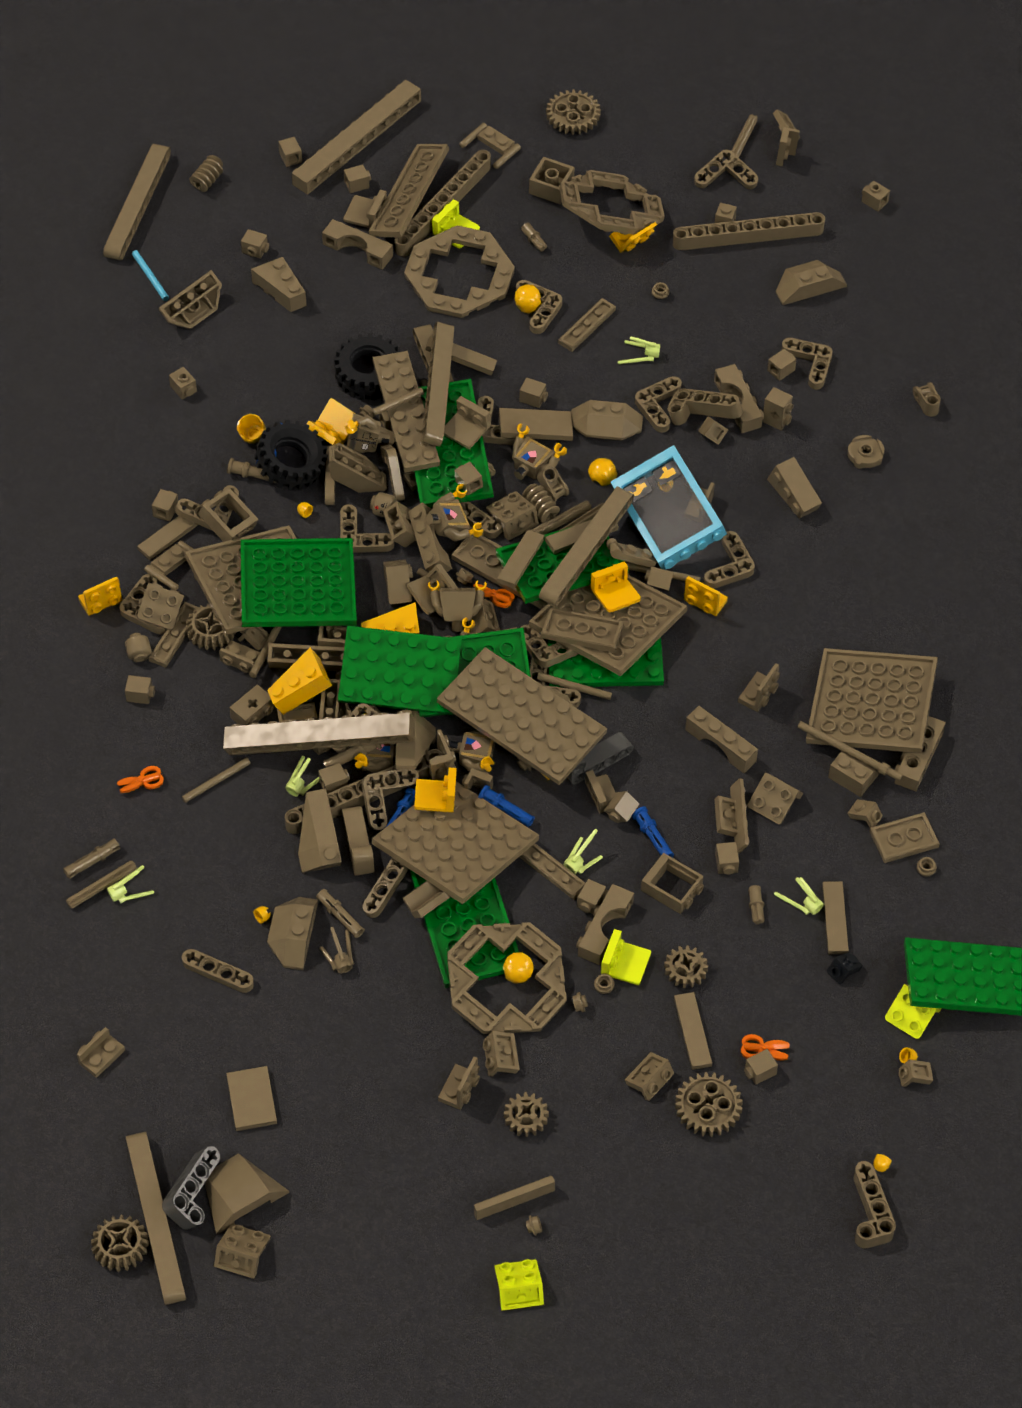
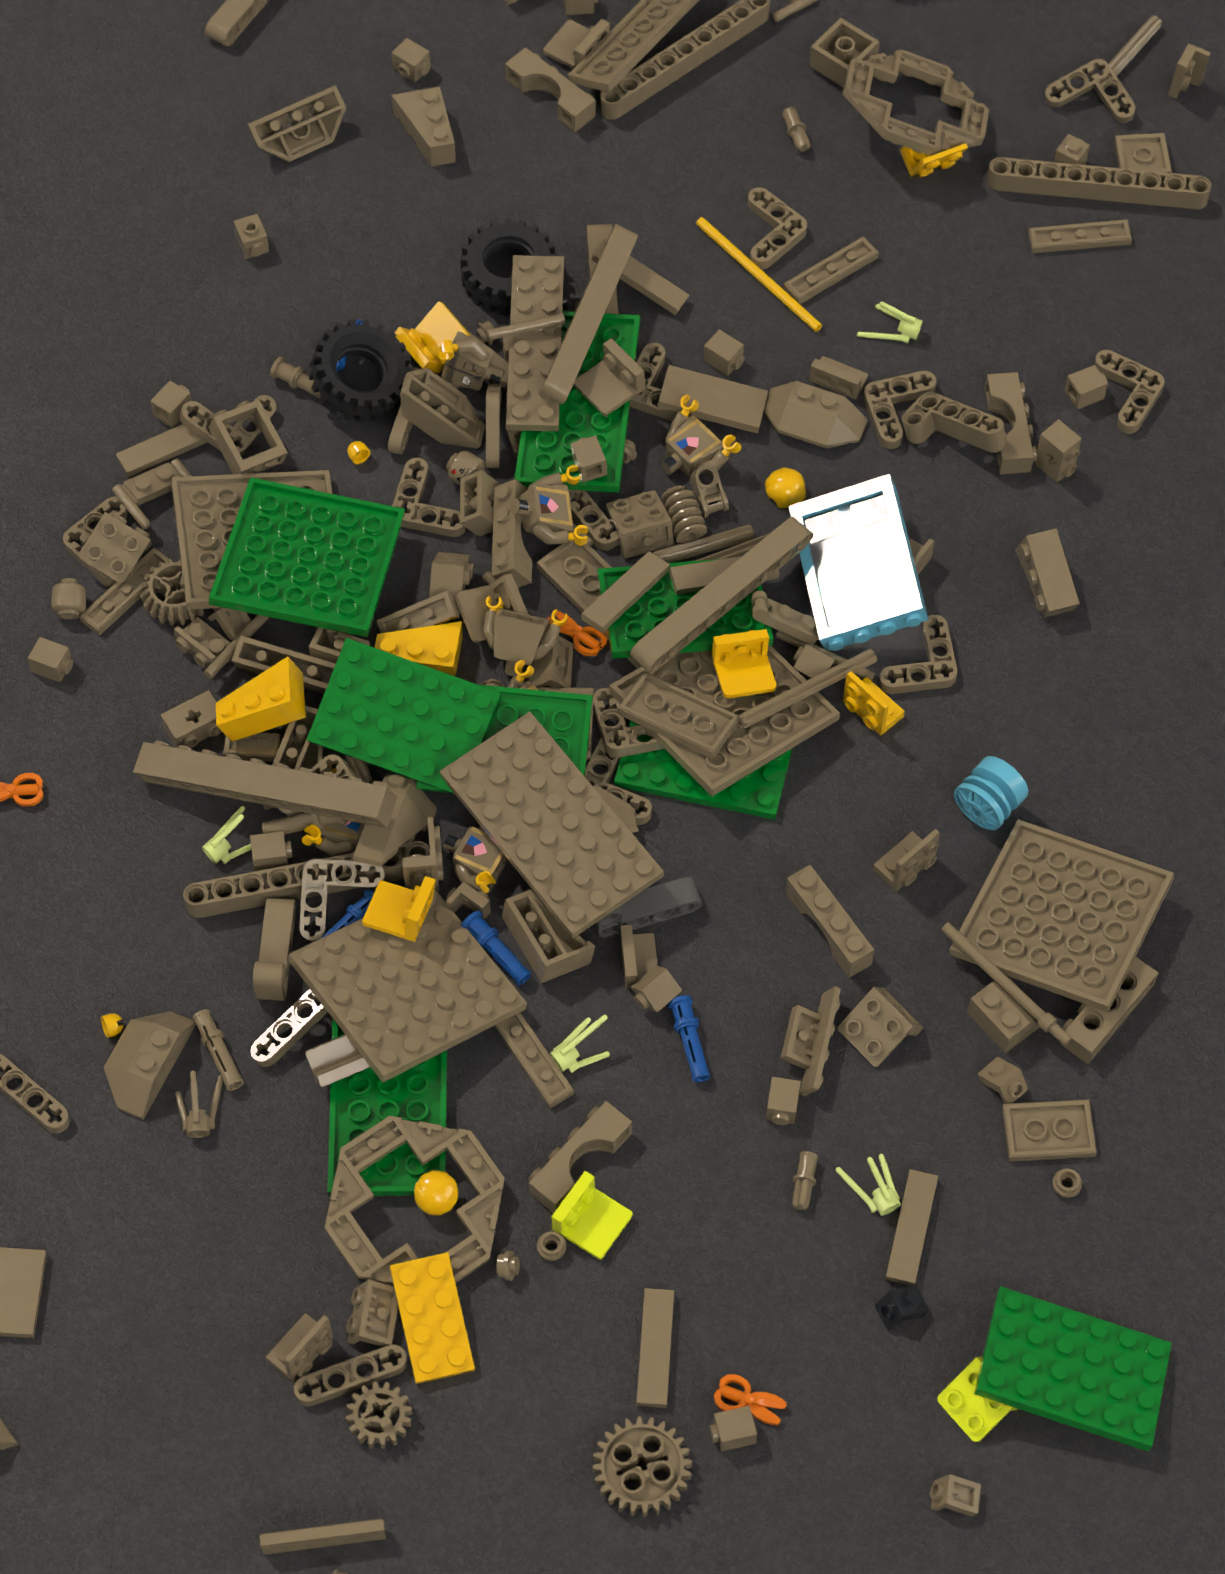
camera: 15 degrees right, 5 degrees up
(101, 596) = (42, 515): yellow bracket -> none
(150, 275) = (259, 75): medium azure bar -> none
(215, 780) = (113, 813): dark tan bar -> none
(250, 428) = (318, 318): yellow hair -> none
(318, 837) = (220, 934): dark tan wedge -> none
(389, 602) = (428, 612): none -> dark tan plate
(441, 244) = (691, 199): dark tan plate -> none
(449, 218) = (689, 91): neon yellow bracket -> none
(464, 576) = (545, 597): dark tan plate -> none
(496, 1093) = (352, 1379): none -> dark tan beam
(527, 298) = (759, 215): yellow hair -> none
(536, 792) = (543, 938): none -> dark tan wedge
(539, 337) = (762, 277): none -> yellow piece
(541, 1046) = (432, 1318): none -> yellow plate
(573, 685) = (648, 793): dark tan bar -> none
(590, 896) = (571, 1111): dark tan brick -> none
(614, 392) = (837, 376): none -> dark tan panel
(650, 1075) = (573, 1401): dark tan bracket -> none
(660, 290) = (948, 243): dark tan plate -> none
(660, 595) = (807, 688): none -> dark tan axle
(668, 863) = (678, 1096): dark tan window -> none
(691, 961) = (687, 1249): dark tan gear -> none
(713, 430) = (959, 462): dark tan panel -> none
(746, 268) = (1079, 236): none -> dark tan tile
(771, 205) = (1142, 152): none -> dark tan plate
(783, 120) = (1198, 36): dark tan plate -> none
(802, 634) = (991, 793): none -> medium azure wheel
(808, 281) = (1161, 274): dark tan wedge -> none
(865, 460) = (1163, 553): dark tan plate -> none
(906, 1054) = (952, 1465): yellow hinge -> none

